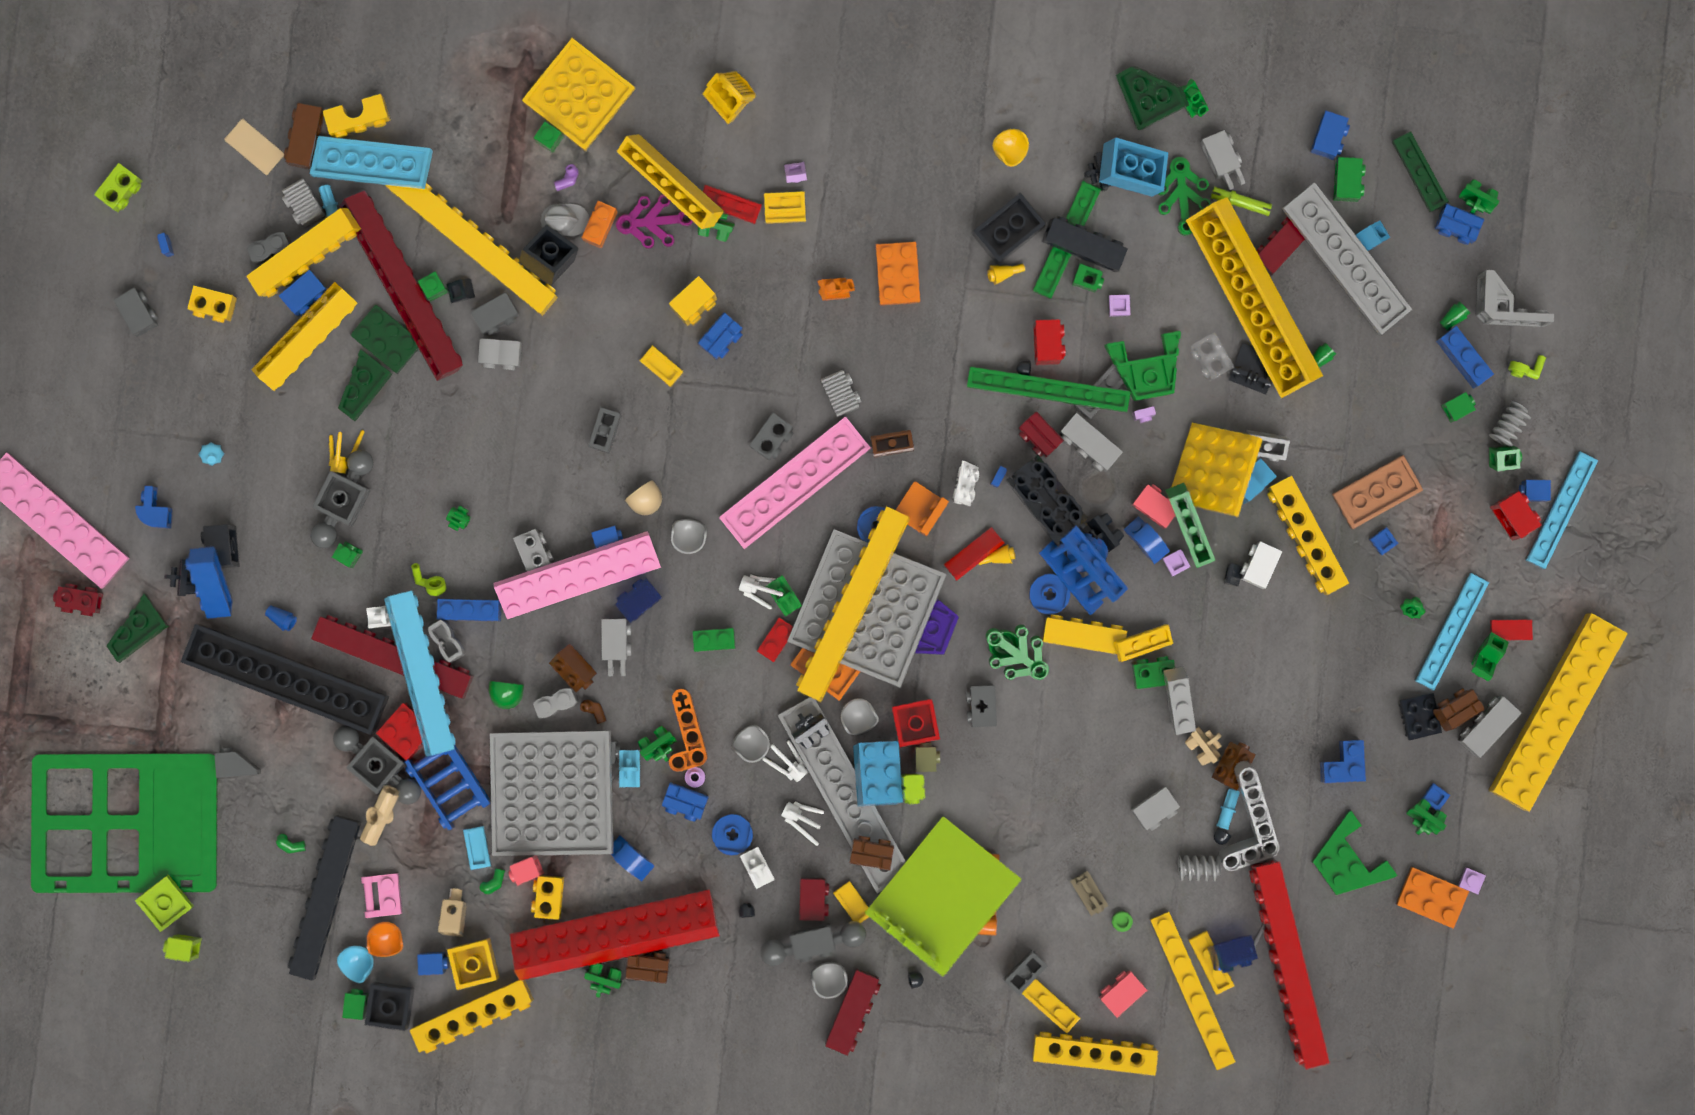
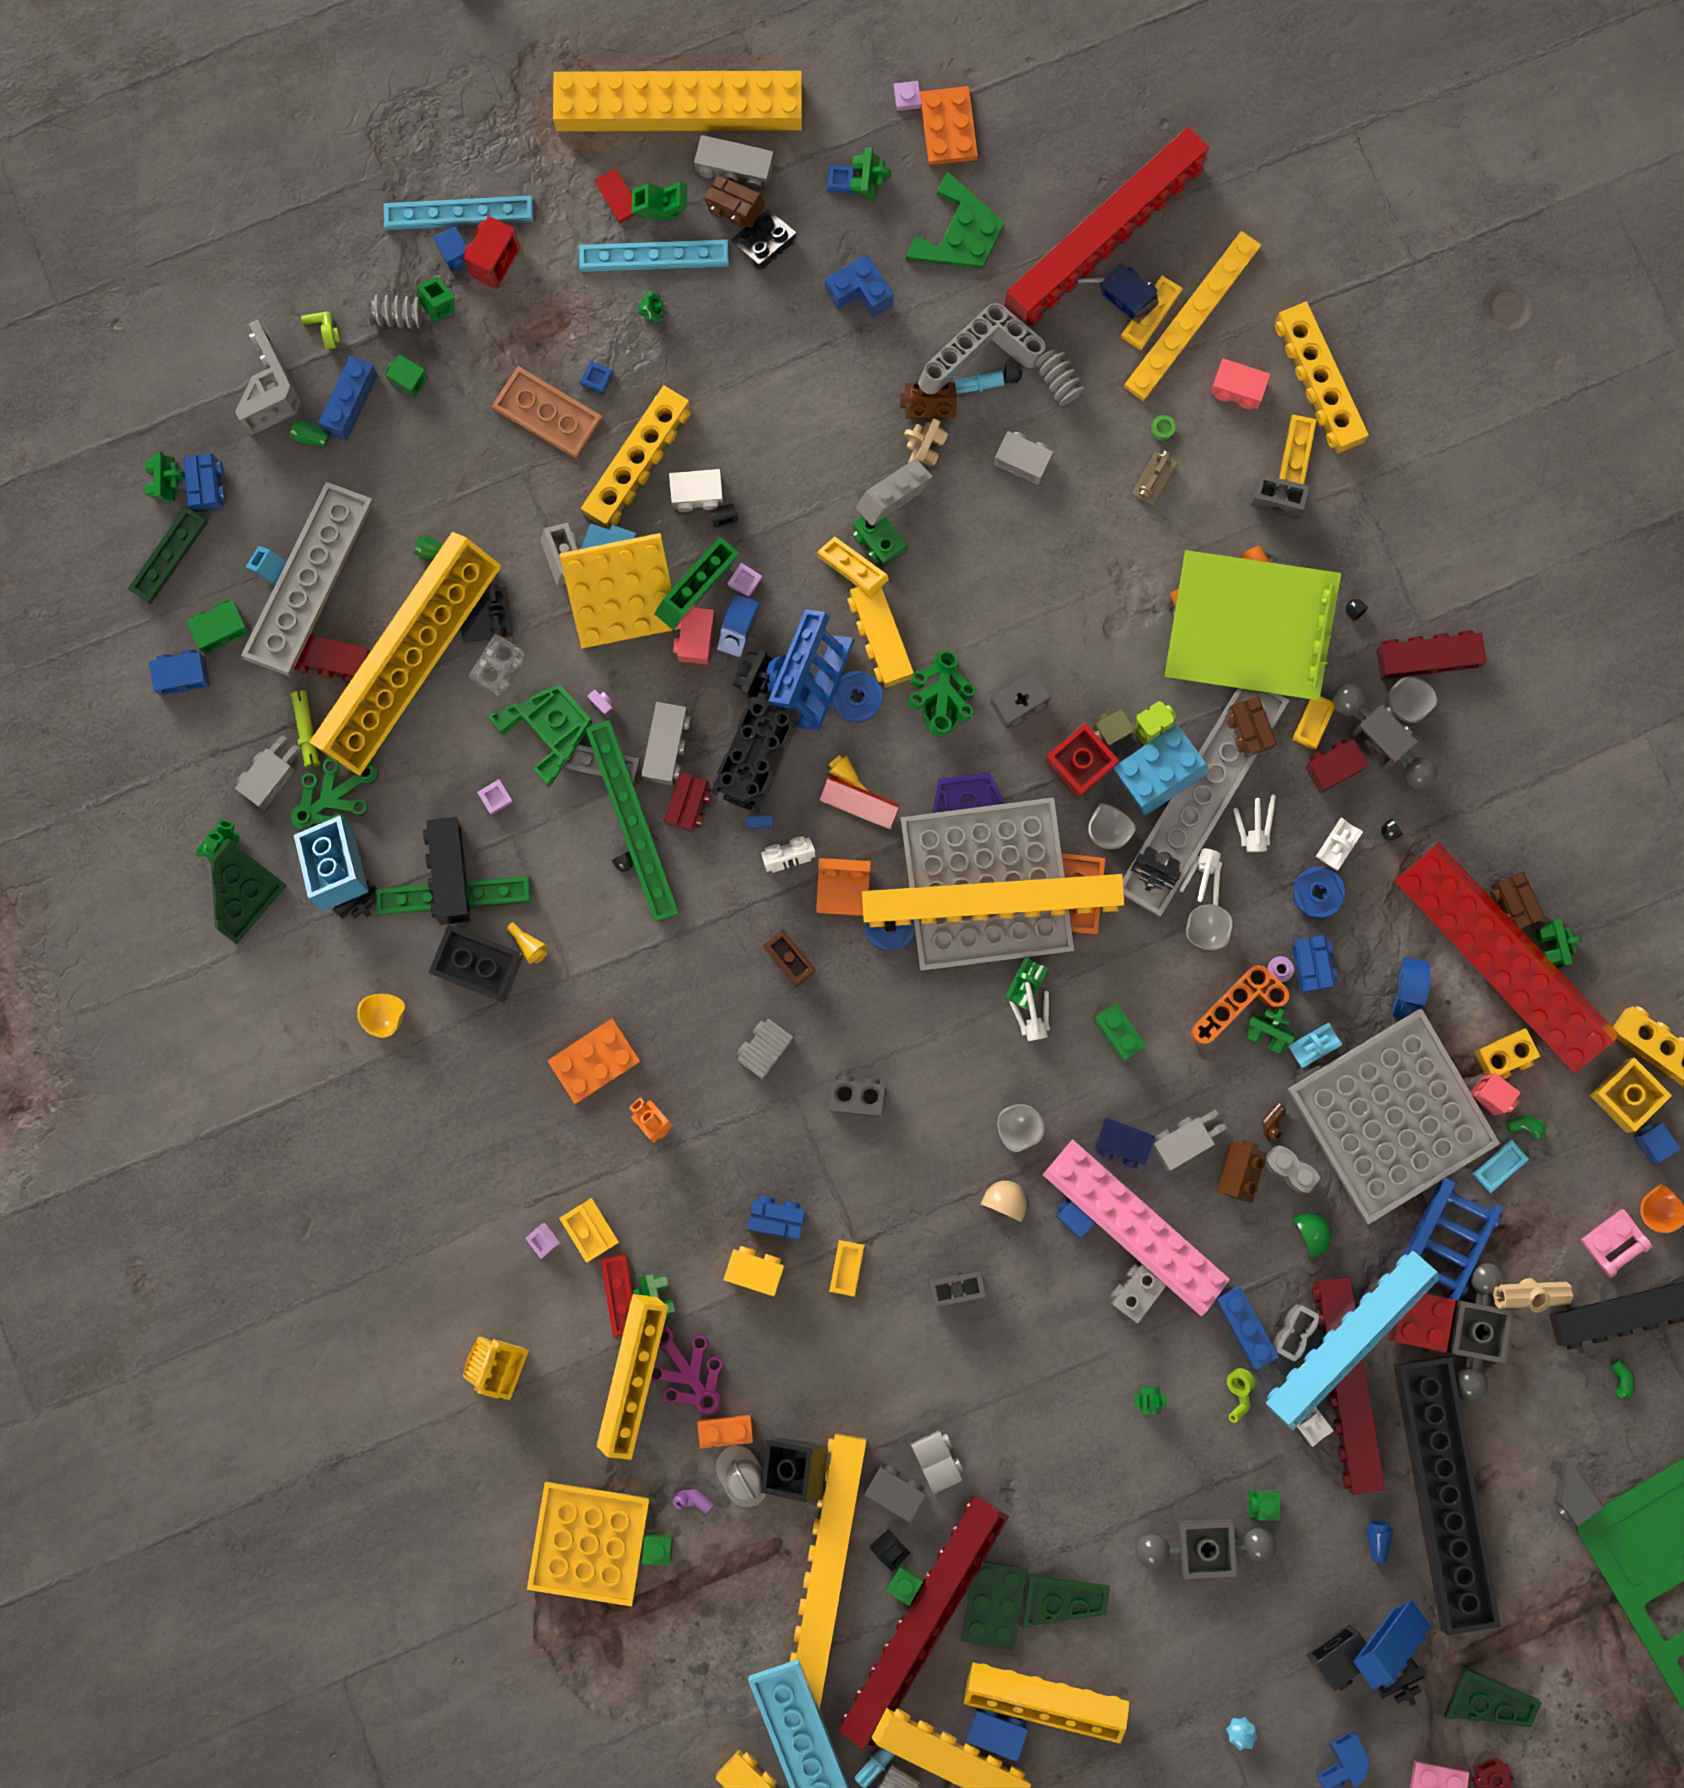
camera: 120 degrees left, 5 degrees down
(339, 463) = (1167, 1578): yellow plant -> none
(454, 923) = (1602, 1146): tan torso -> none
(775, 640) = (1078, 965): red plate -> none
(795, 482) = (893, 1043): bright pink plate -> none
(1048, 342) = (579, 849): red brick -> none
(1085, 271) = (476, 839): green brick -> none

